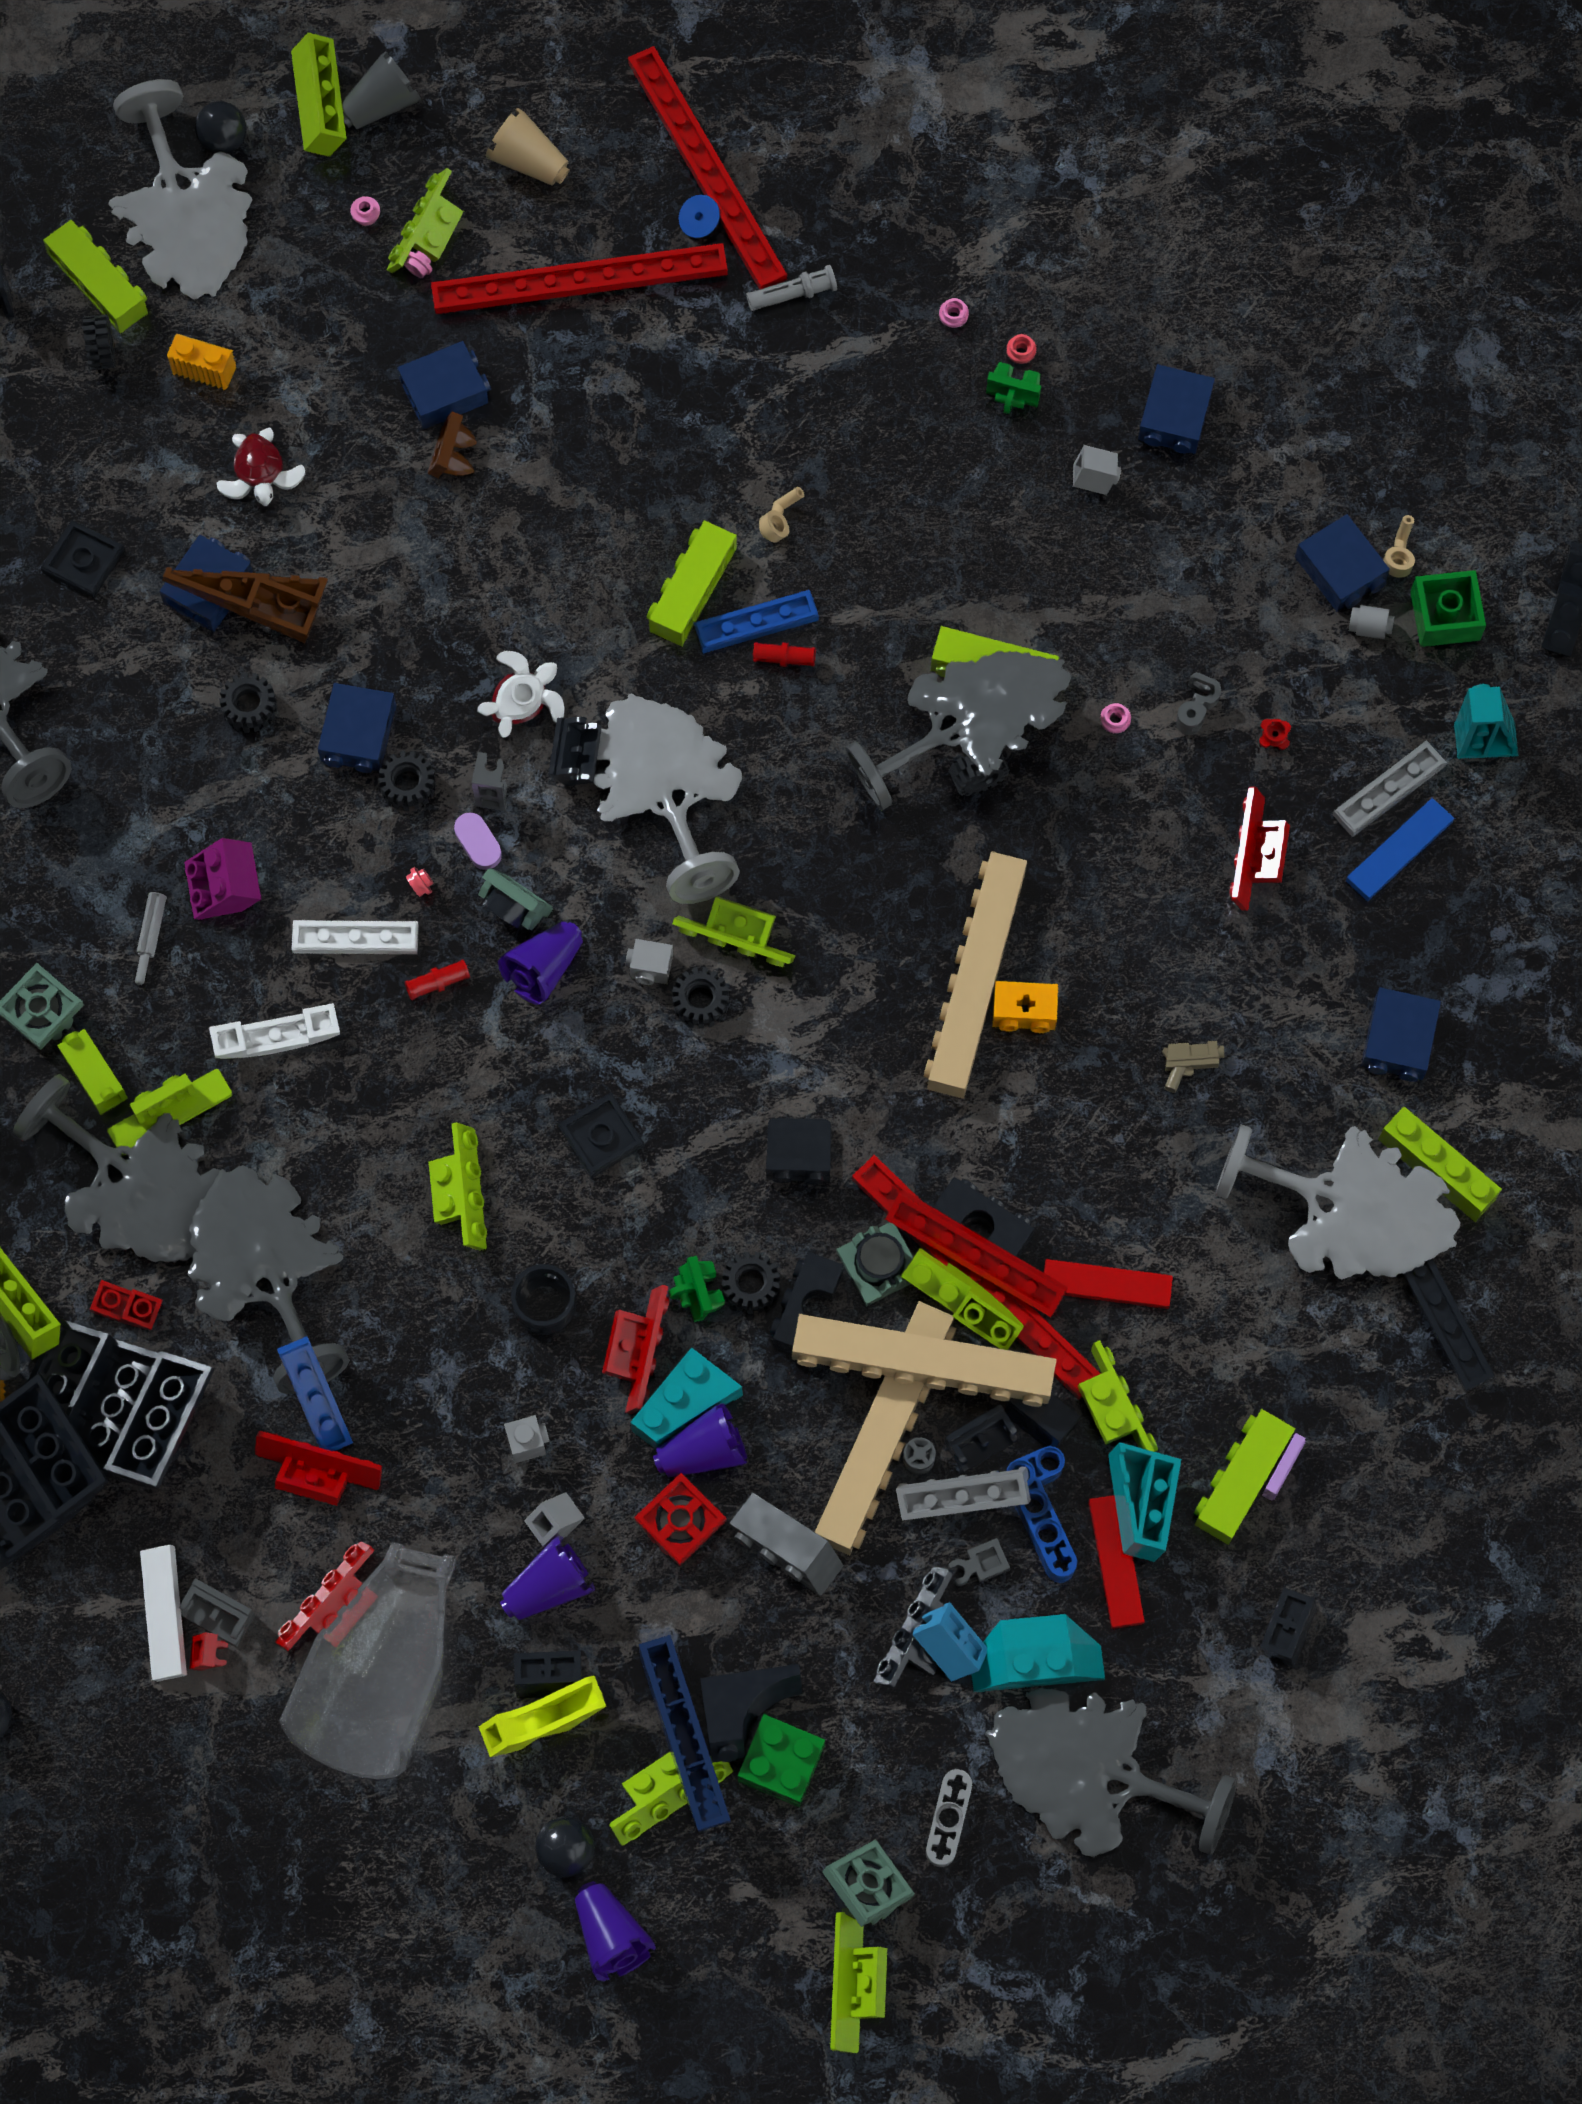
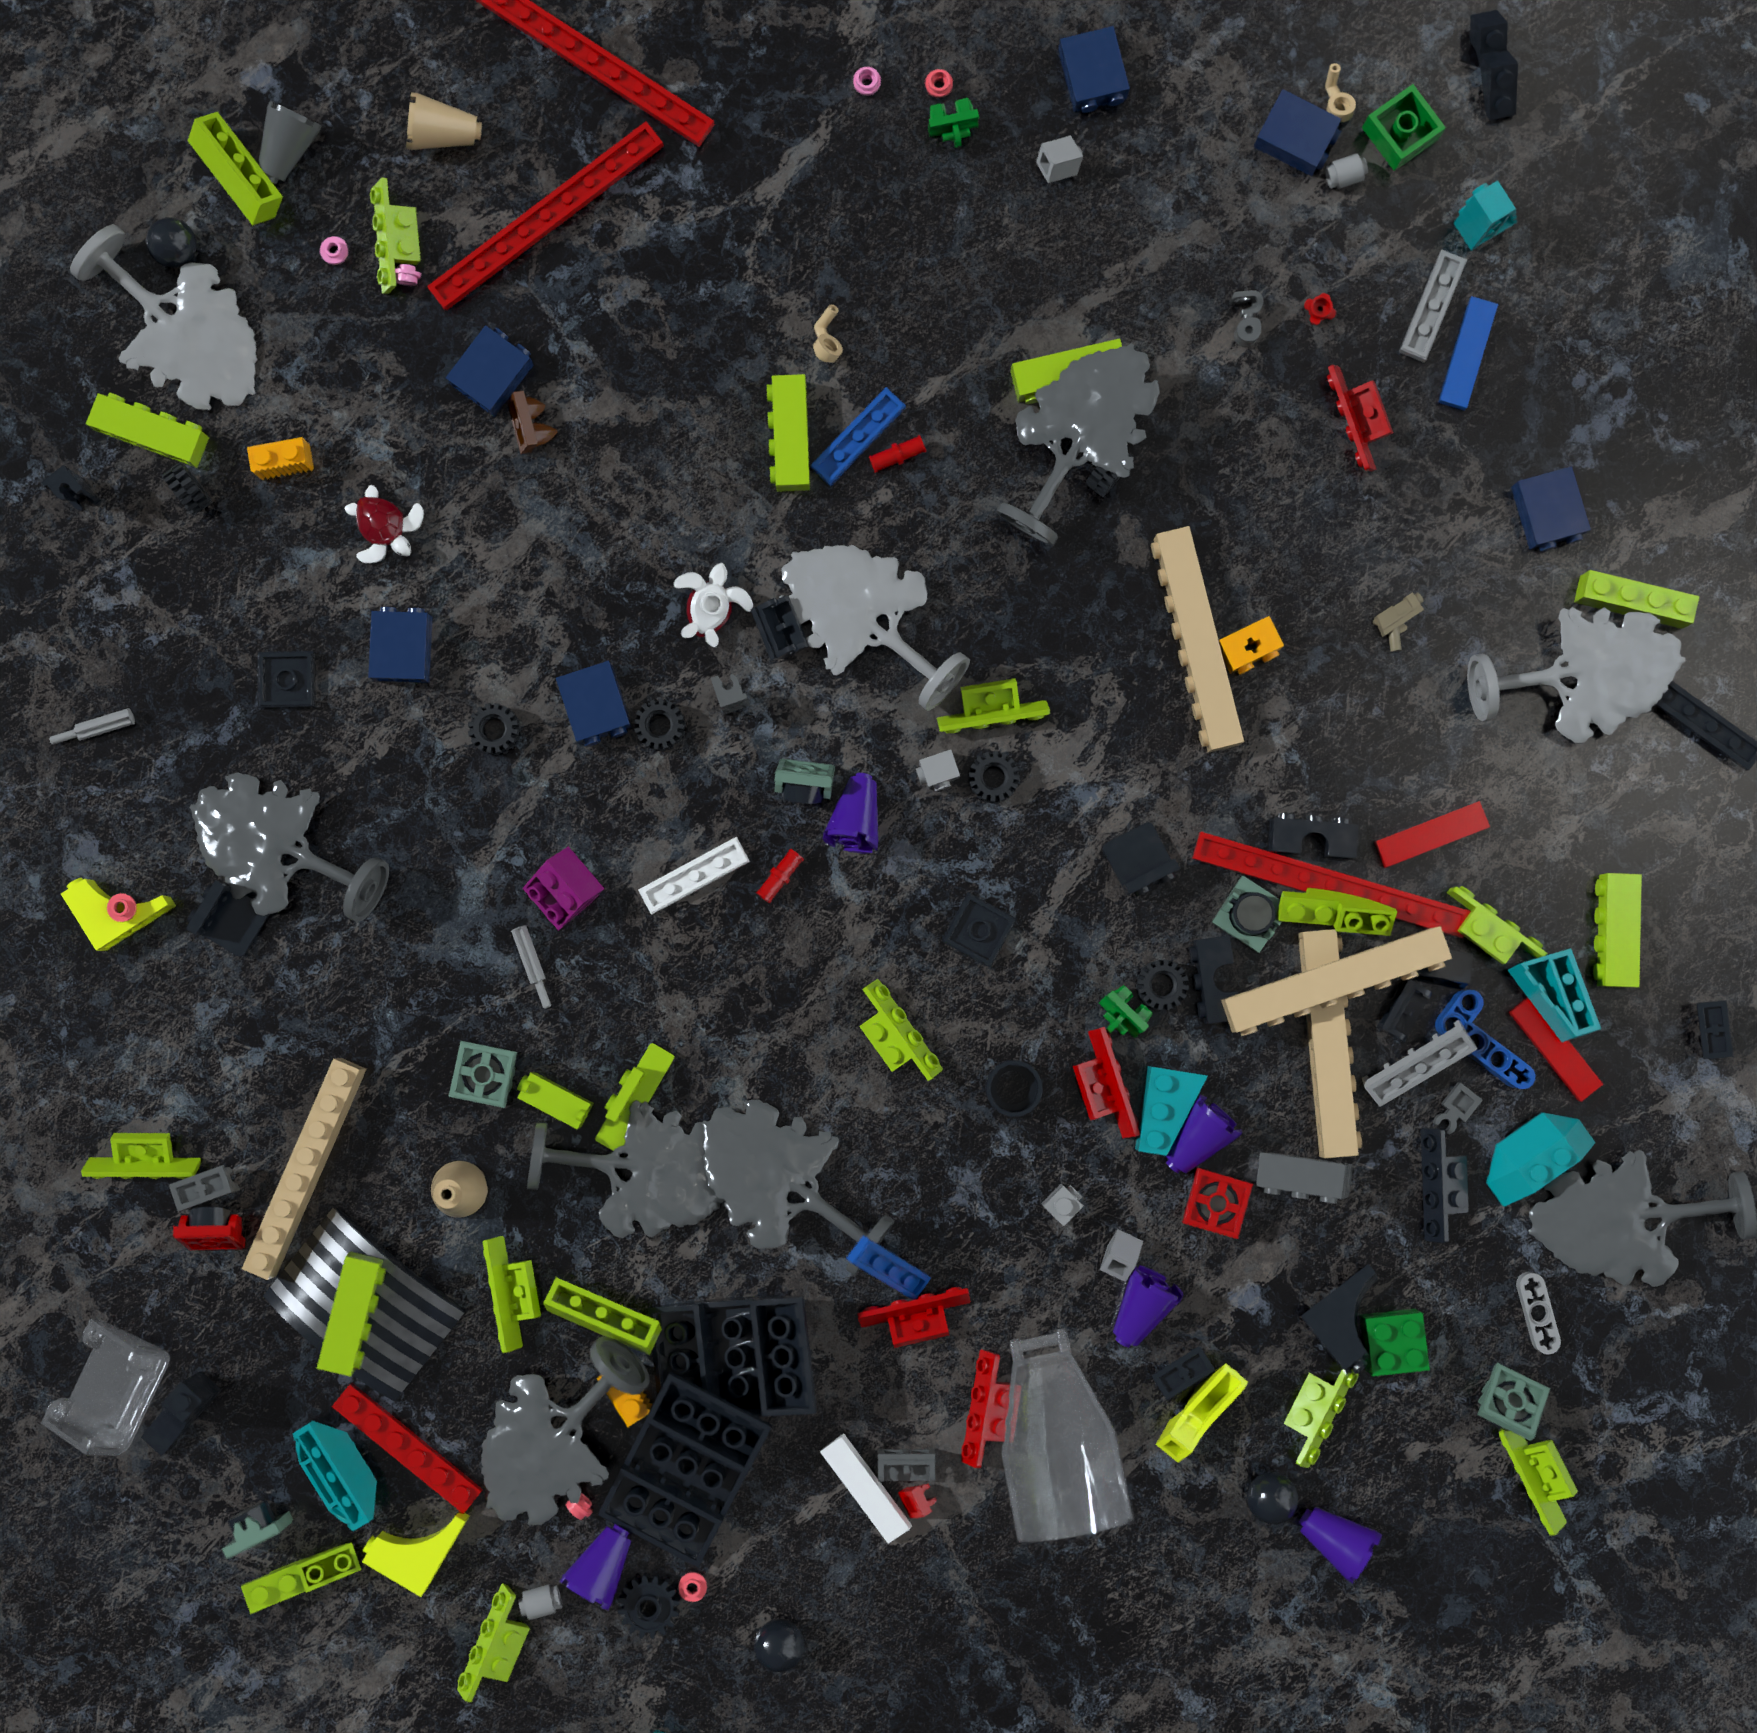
camera: 25 degrees left, 15 degrees up
(125, 1305) = (693, 1268): red slope -> none
(273, 601) = (465, 635): reddish brown wedge -> none
(275, 1035) = (679, 990): white slope -> none
(420, 881) = (719, 803): coral plate -> none
(477, 841) = (744, 743): lavender tile -> none
(683, 1733) = (1317, 1369): dark blue slope -> none
(699, 216) = (611, 106): blue piece -> none
(805, 286) = (733, 122): light grey pin -> none
(924, 1451) = (1371, 1051): dark grey wheel -> none
(951, 1642) = (1474, 1184): dark azure hinge -> none
(976, 1253) = (1326, 870): red plate -> none
(1115, 710) = (1192, 357): bright pink plate -> none
(1284, 1467) = (1647, 906): lavender tile -> none

